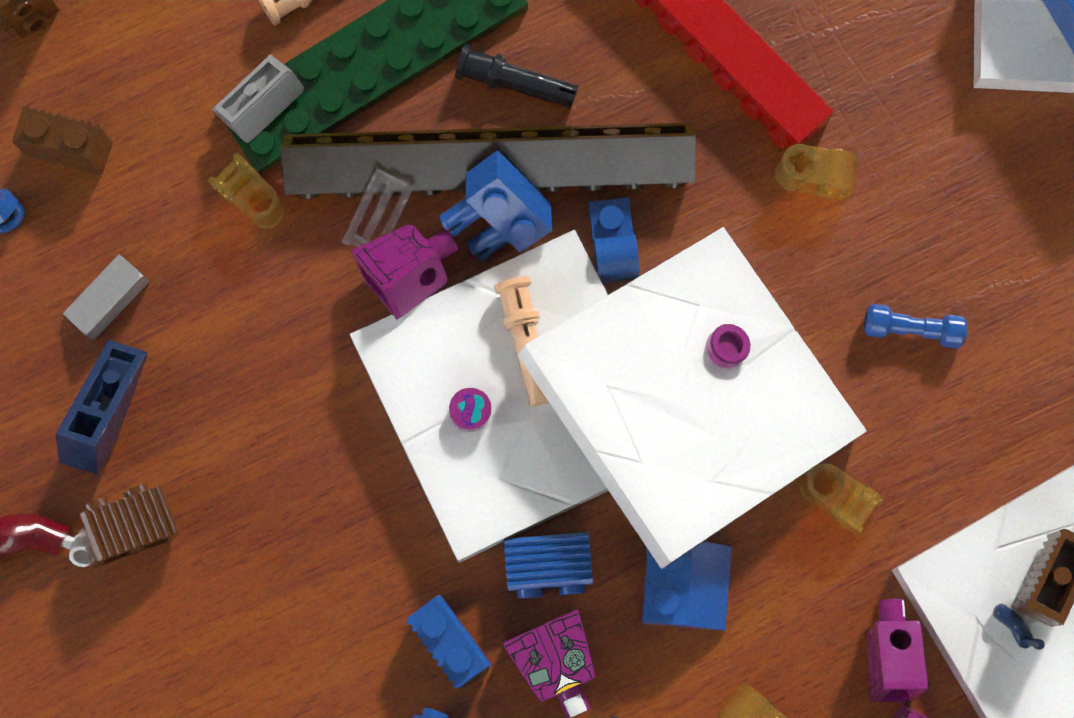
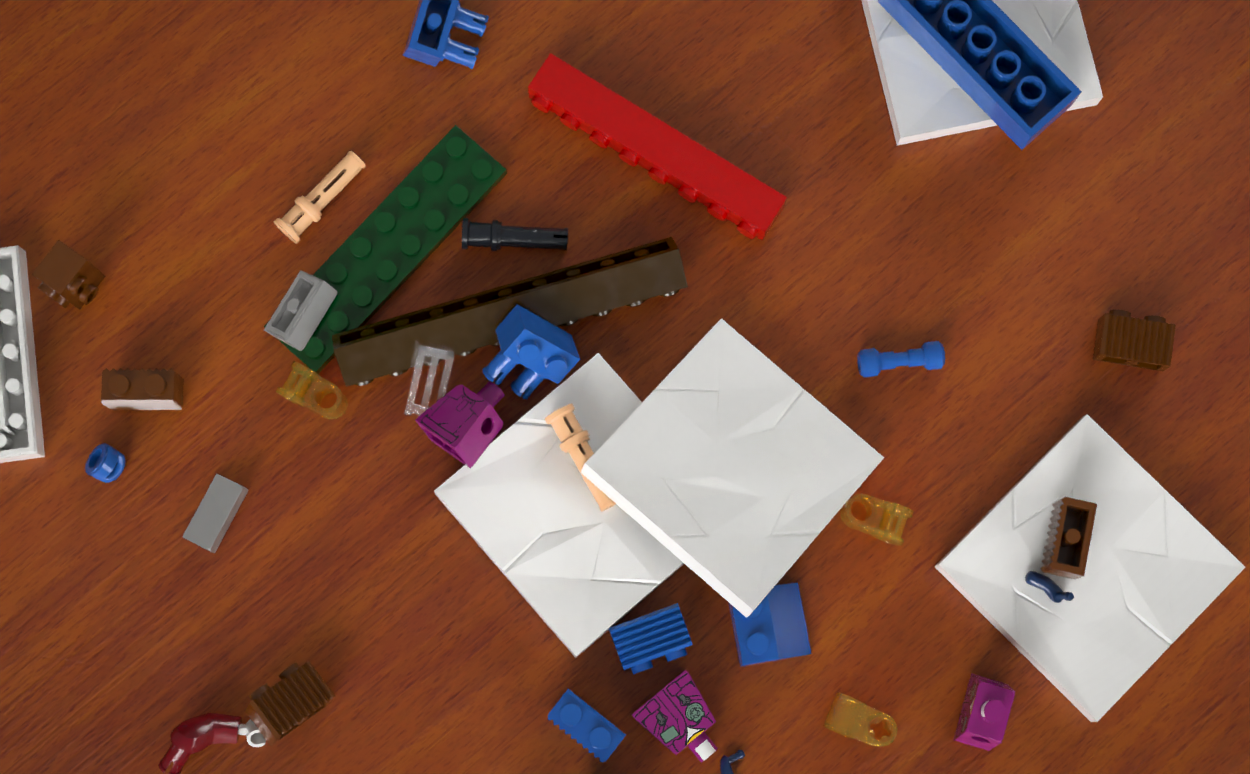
camera: 20 degrees left, 0 degrees up
(100, 408) = (238, 608): dark blue slope -> none
(470, 409) = (552, 527): magenta tile -> none
(613, 240) = (632, 352): blue plate -> none
(728, 345) = (752, 417): magenta tile -> none
(824, 171) = (792, 249): clear yellow piece -> none
(894, 672) = (960, 650): magenta torso -> none

